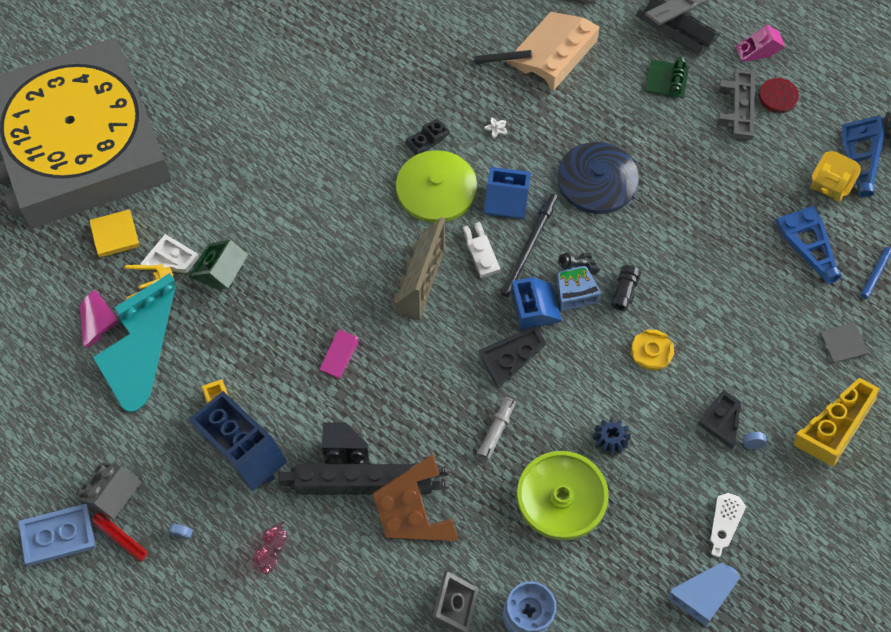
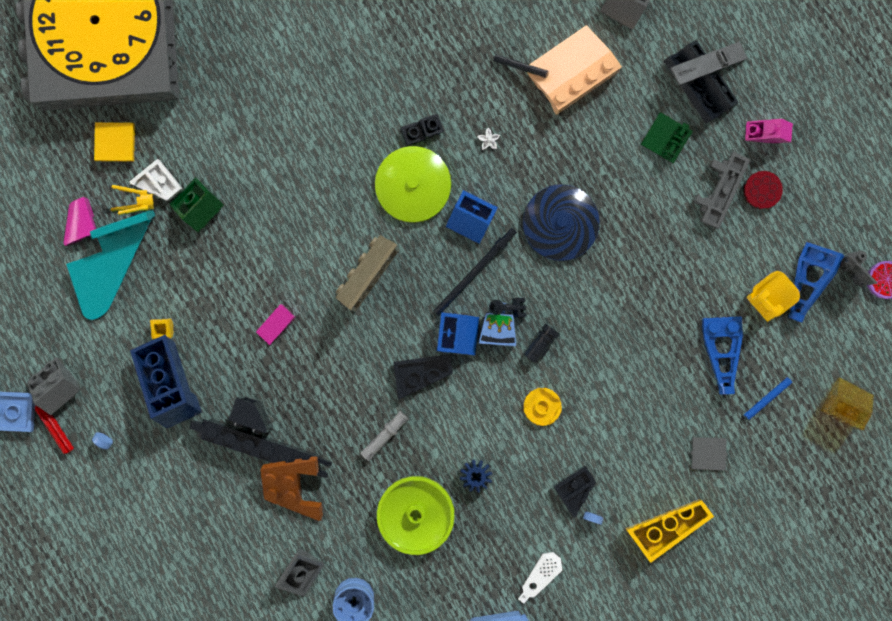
camera: 25 degrees right, 25 degrees up
(274, 540) = (164, 485): clear pink hinge -> none
(481, 252) = (430, 265): white hinge -> none

